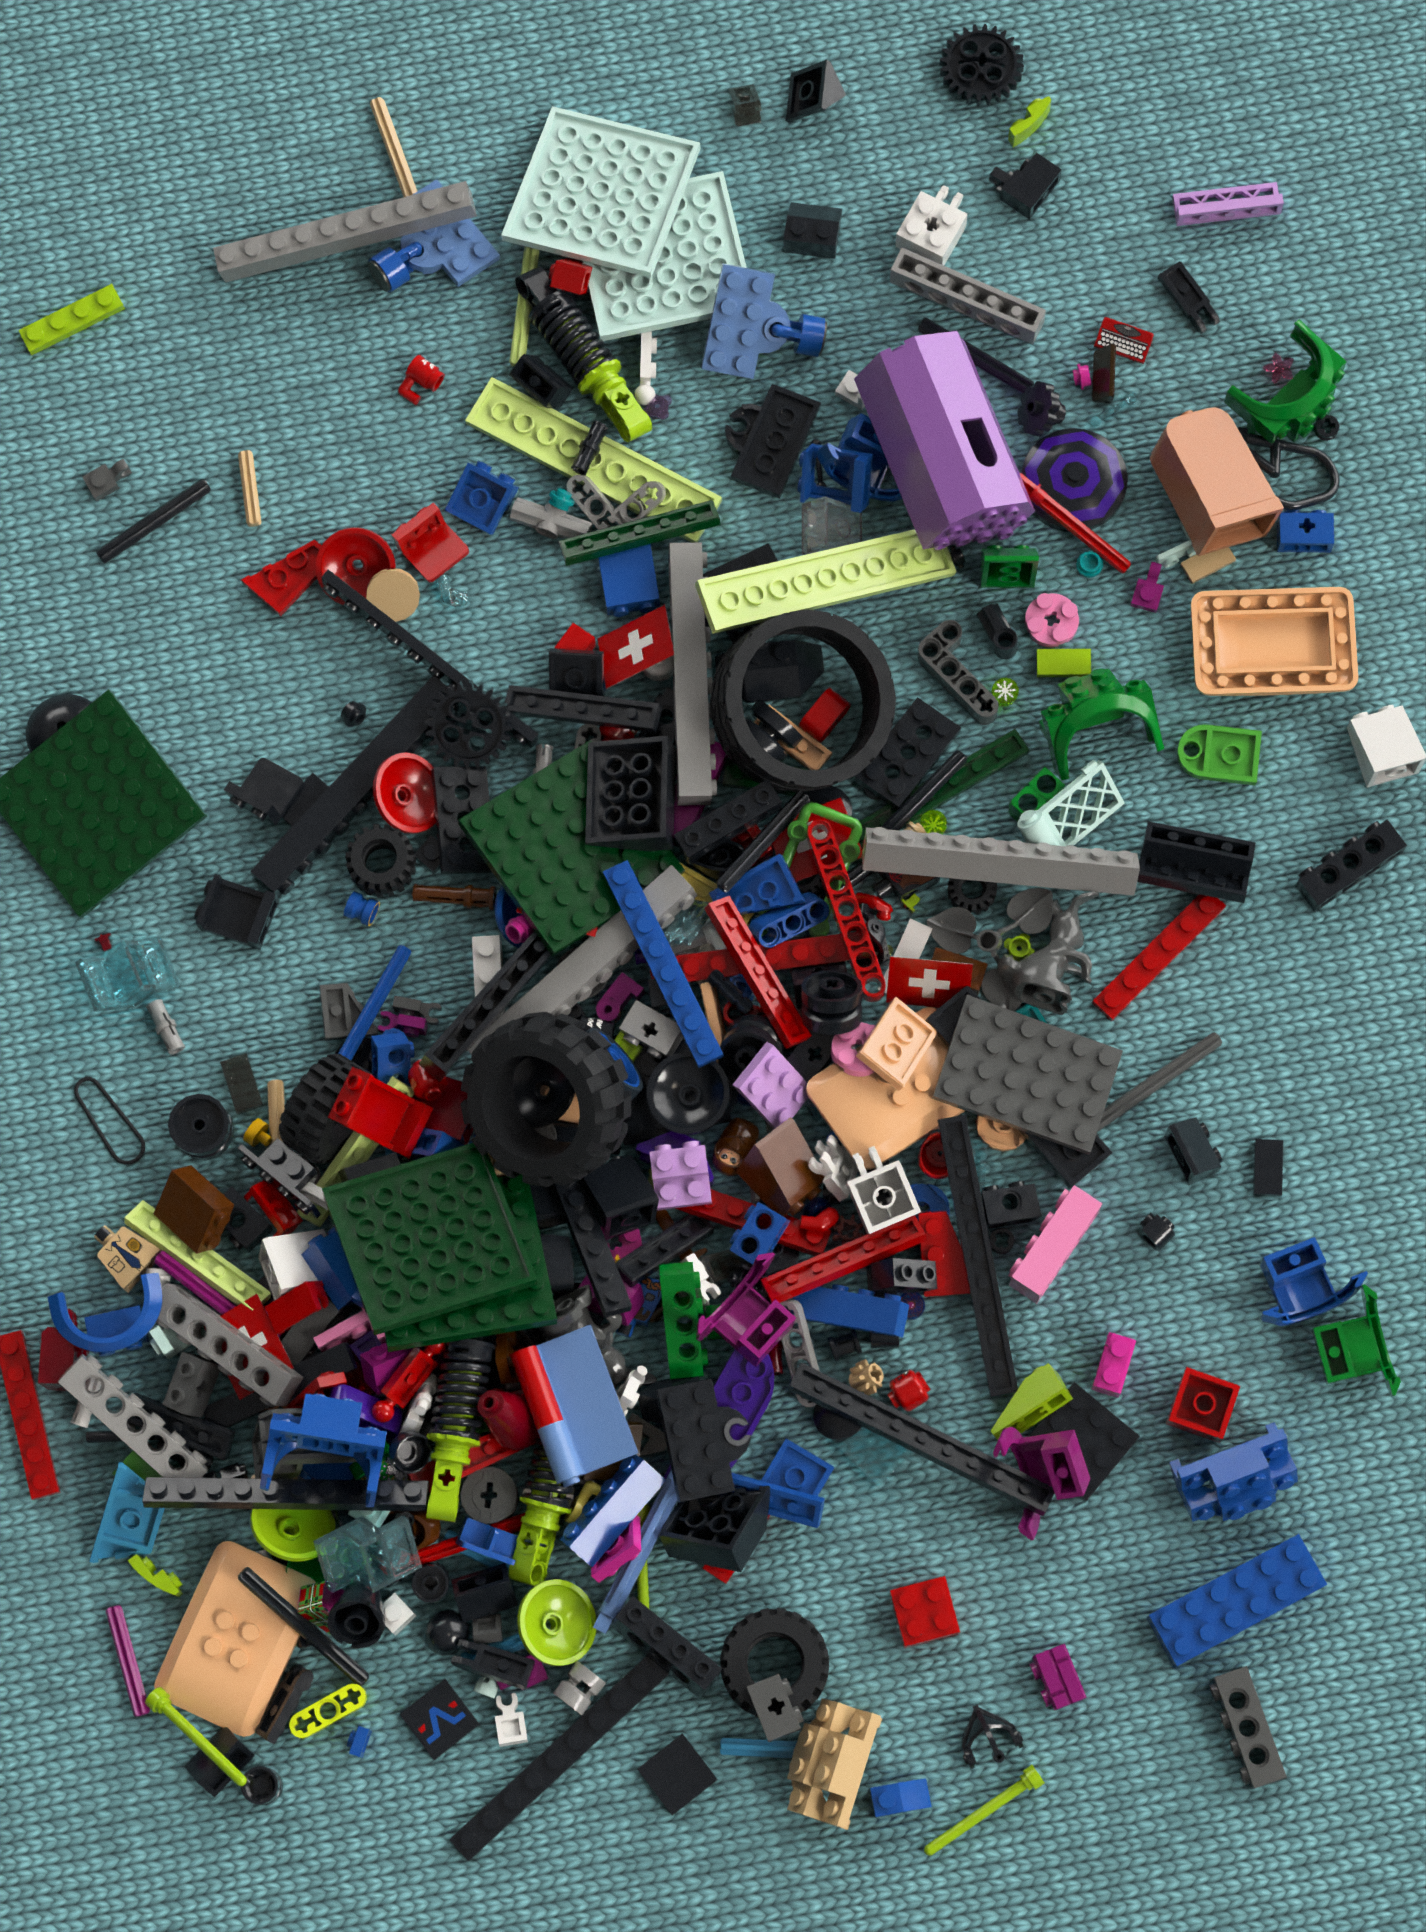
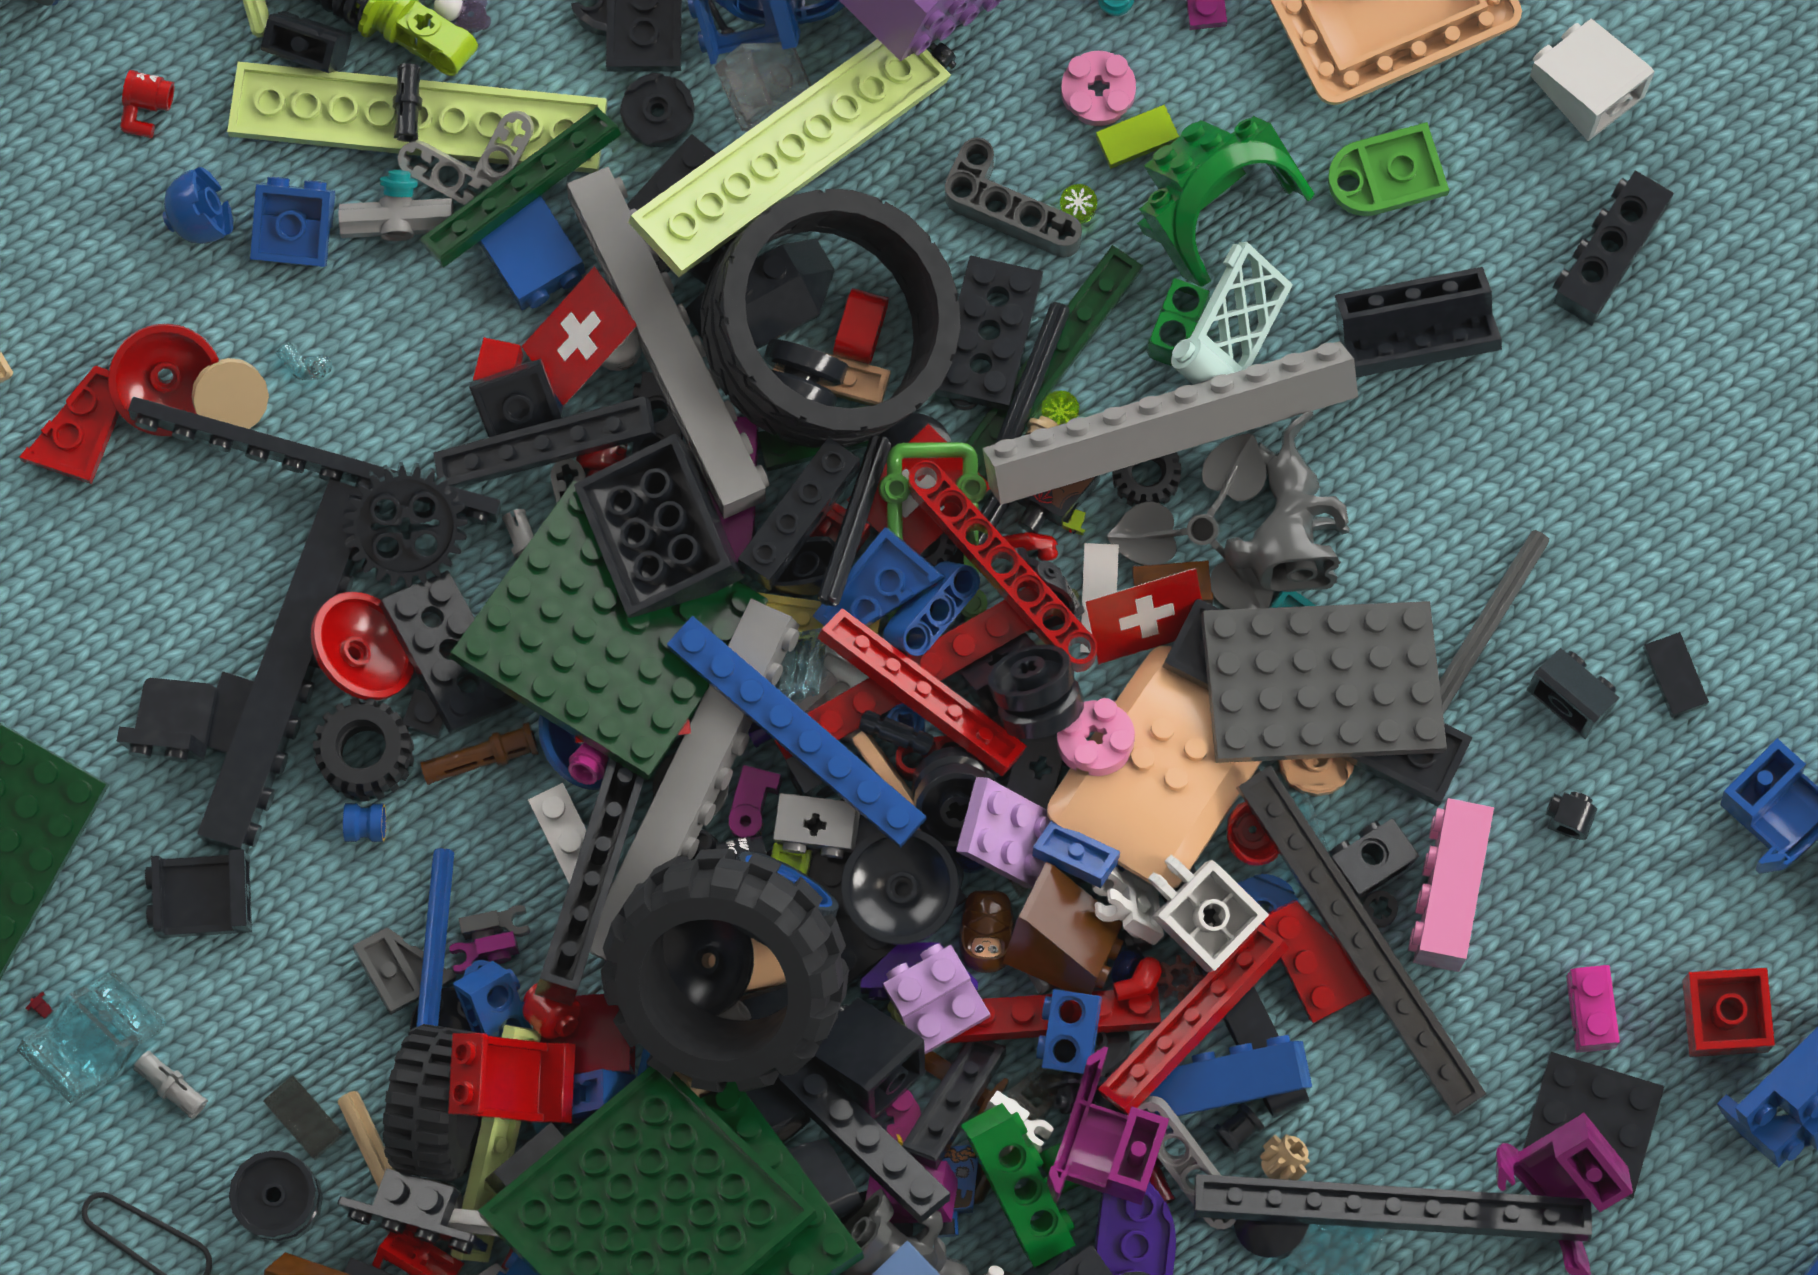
camera: 25 degrees left, 0 degrees up
(257, 1133) = (353, 1174): yellow tile -> none
(353, 713) = (244, 572): black plate -> none
(423, 462) = (195, 208): none -> blue cylinder
(429, 543) = (250, 310): red bracket -> none
(752, 505) = (657, 92): none -> black plate
(813, 1120) = (1076, 854): none -> plate
(897, 1043) = (1142, 711): light nougat tile -> none
(904, 1275) = (1279, 1006): black brick -> none
(908, 1390) = (1346, 1152): red head -> none
(916, 1305) = (1308, 1034): clear blue tile -> none
(997, 630) = (1035, 127): black piece -> none
(1008, 567) = (1016, 40): green slope -> none
(1022, 941) = (1242, 514): lime plate -> none
(1033, 1401) = (1511, 1098): lime slope -> none
(1158, 955) = (1419, 461): red plate -> none

